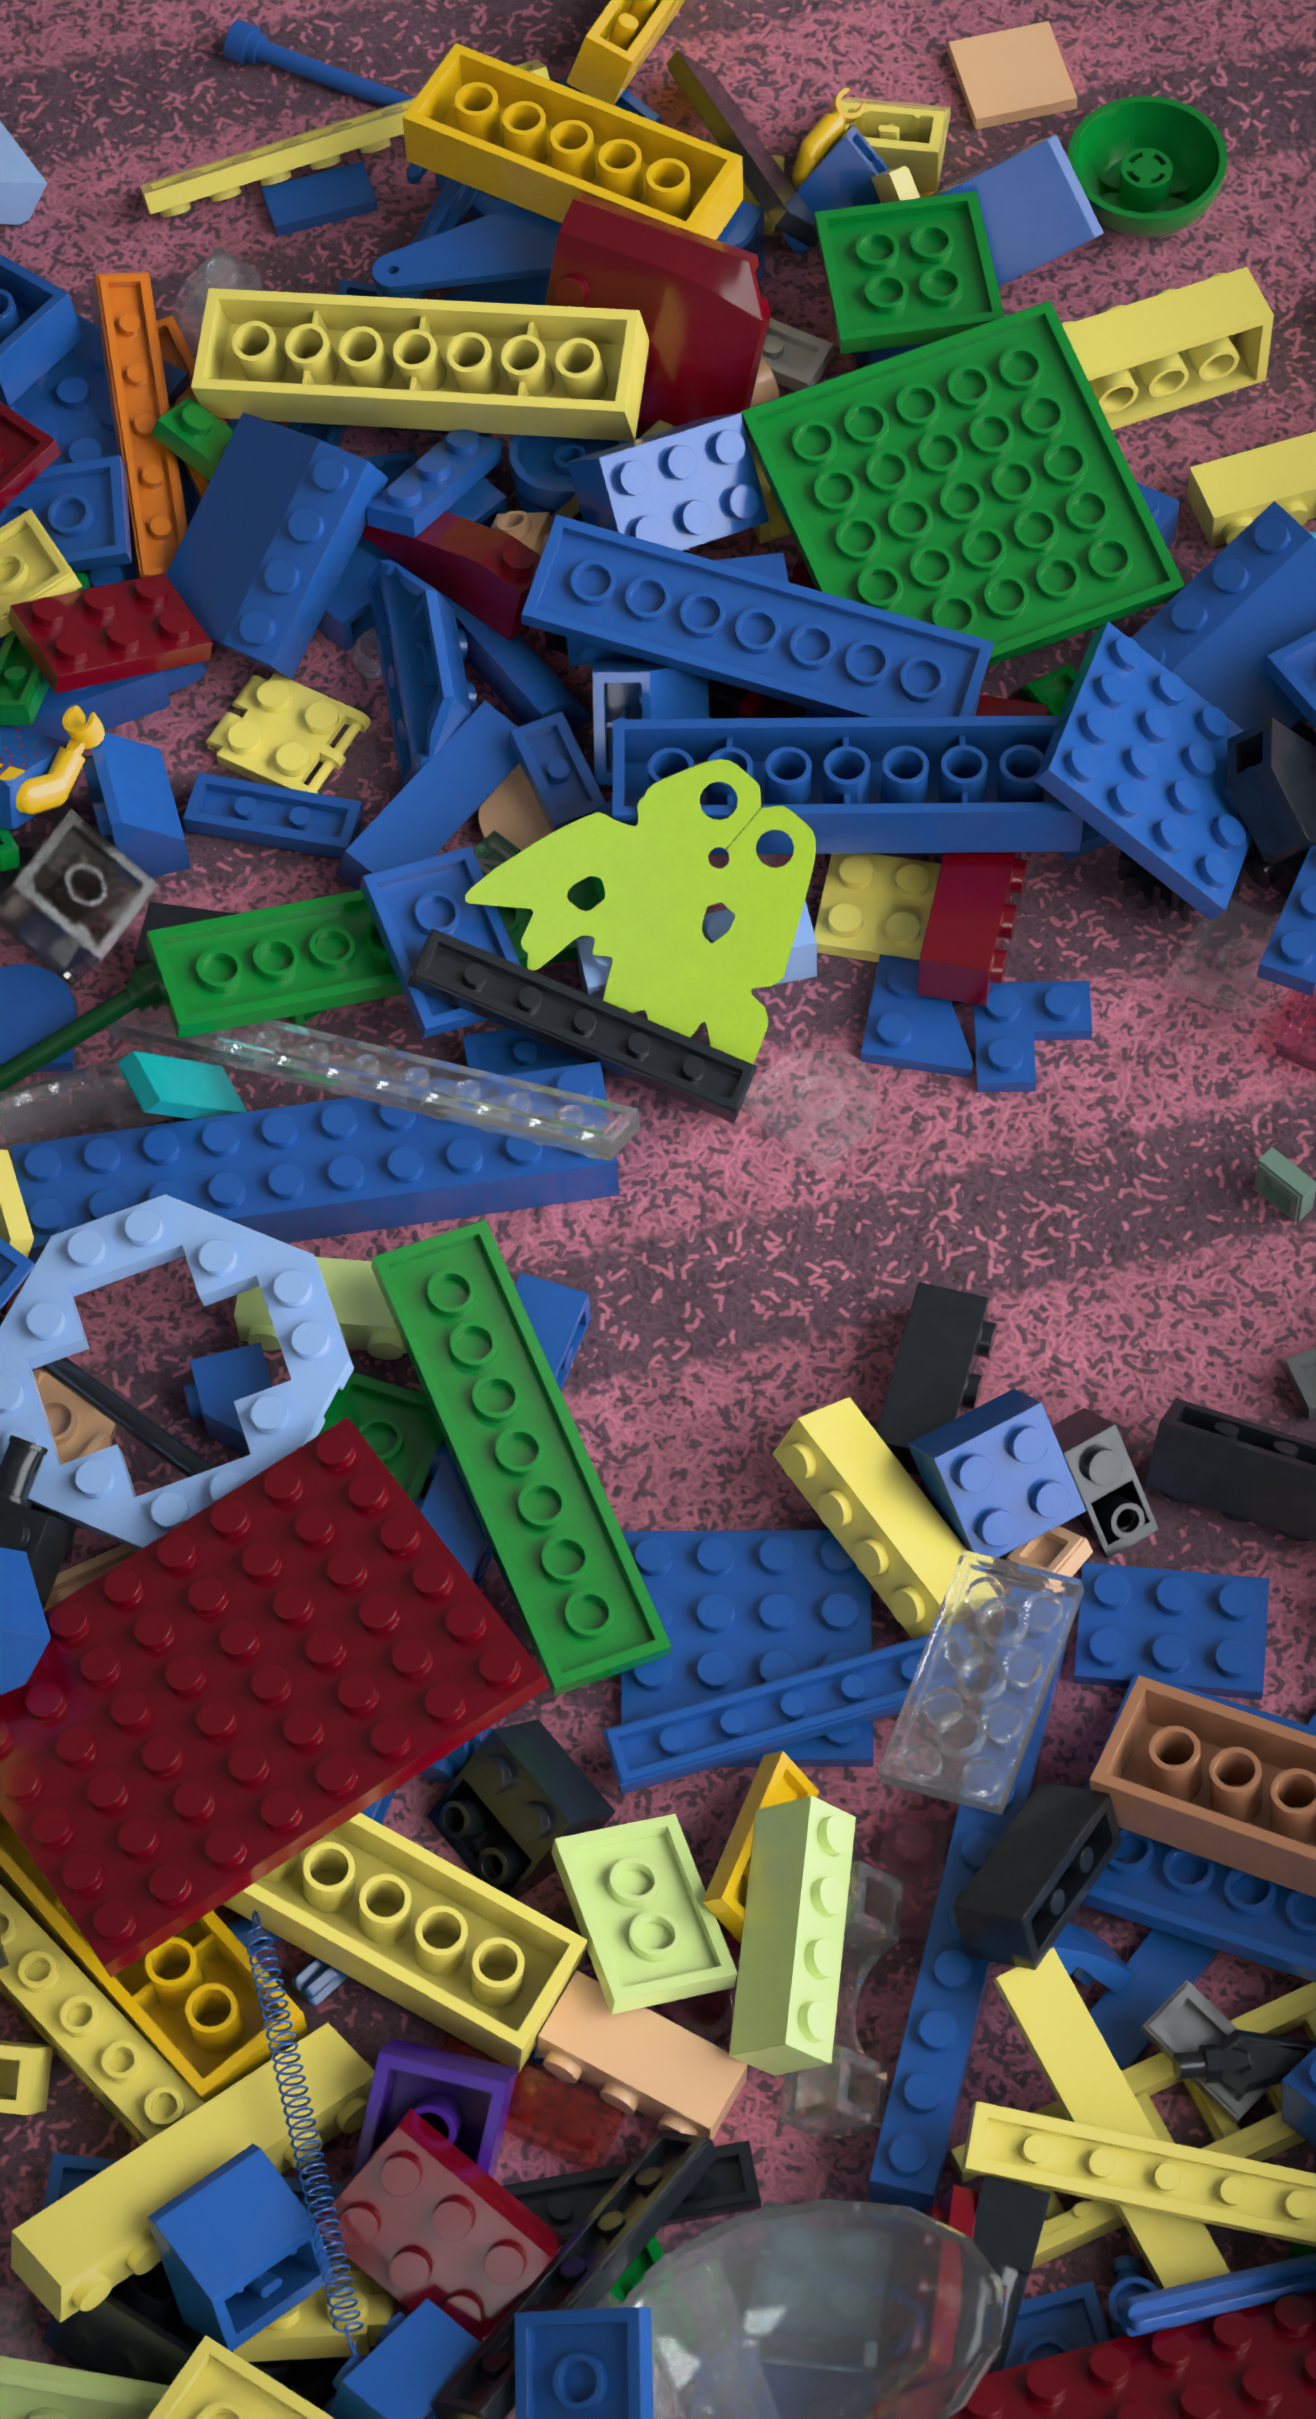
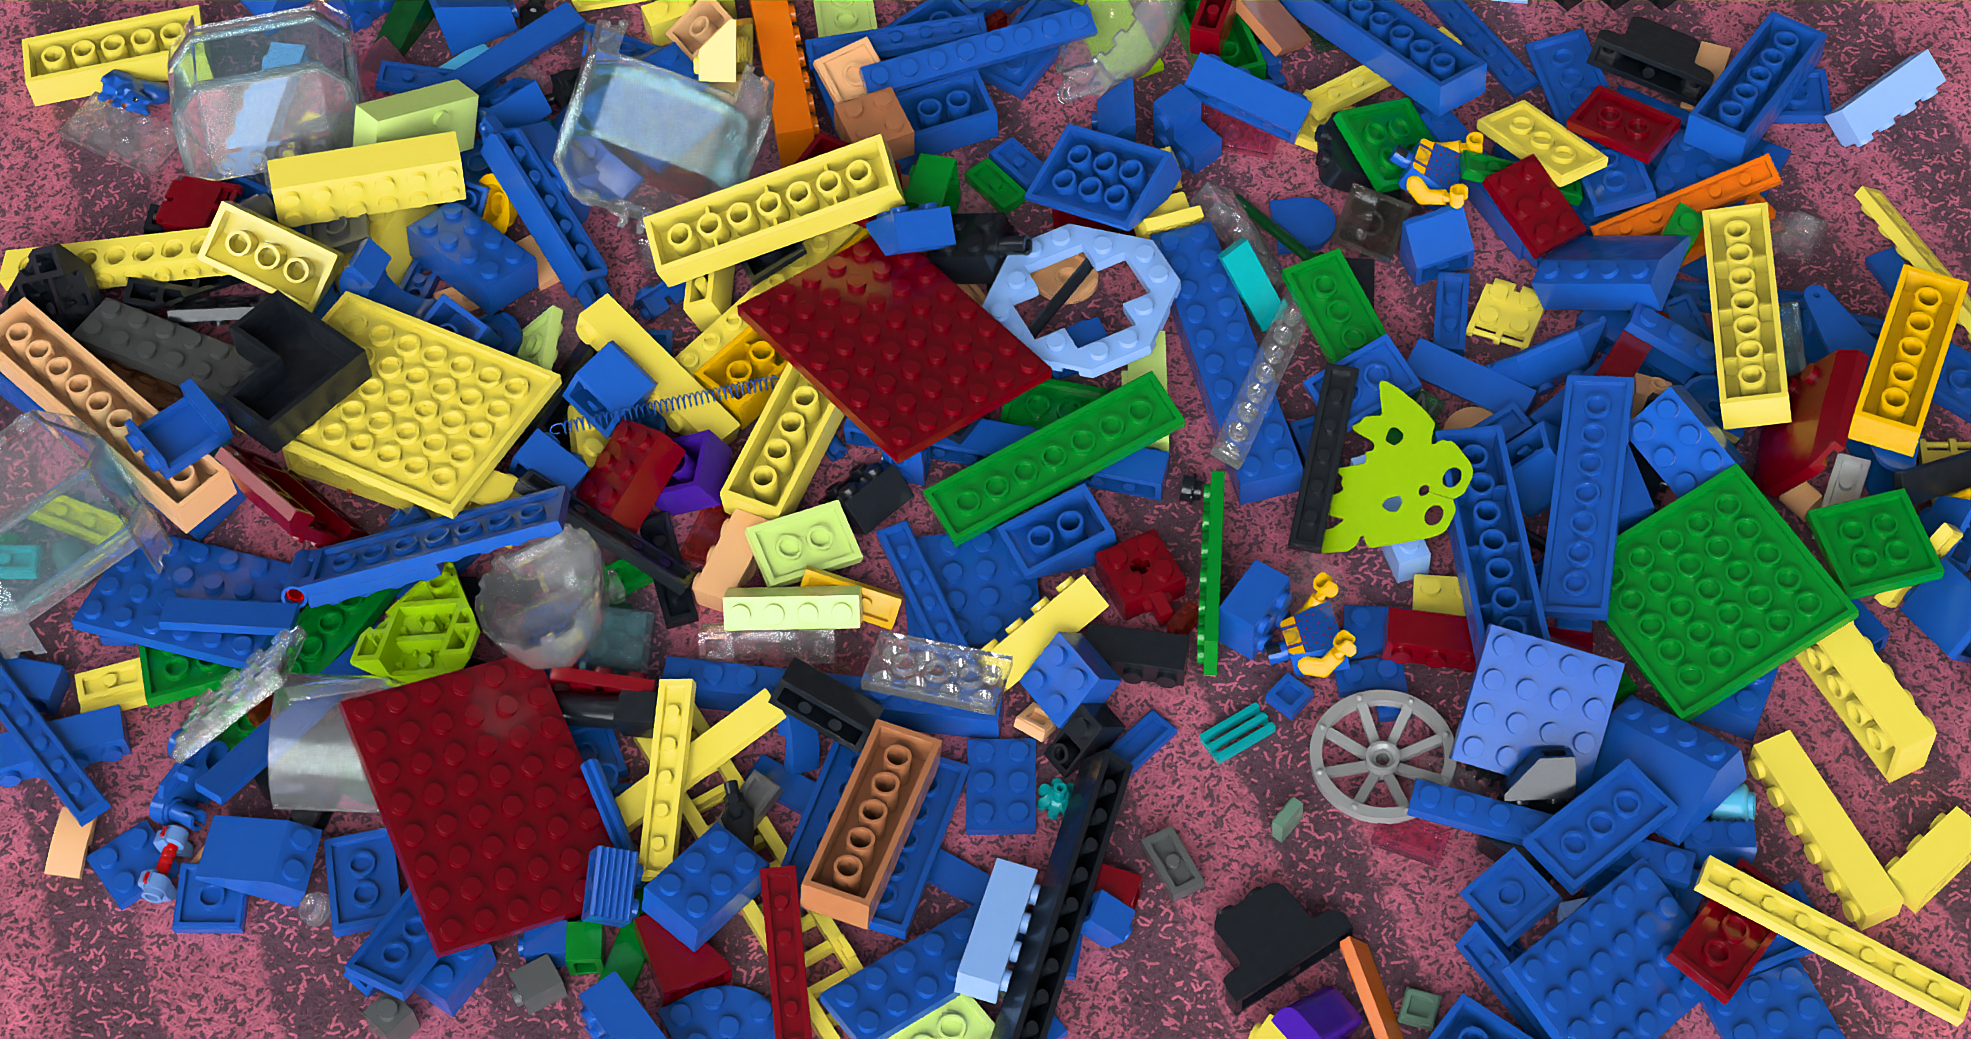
camera: 85 degrees right, 5 degrees down
(585, 1255) = (1190, 489): none -> black plate
(671, 1472) = (1058, 534): none -> blue slope
(791, 1228) = (1211, 573): none -> green plate
(805, 1347) = (1141, 577): none -> dark red hinge
(872, 1300) = (1184, 619): none -> clear red tile
(879, 1173) = (1254, 610): none -> blue brick
(943, 1095) = (1313, 636): none -> torso
(1036, 1156) = (1289, 696): none -> blue plate
(1075, 1208) = (1260, 718): none -> teal tile
(1089, 1381) = (1144, 740): none -> blue tile
(1179, 1019) = (1378, 751): none -> light grey wheel
(1202, 1541) = (1054, 798): none -> teal plant

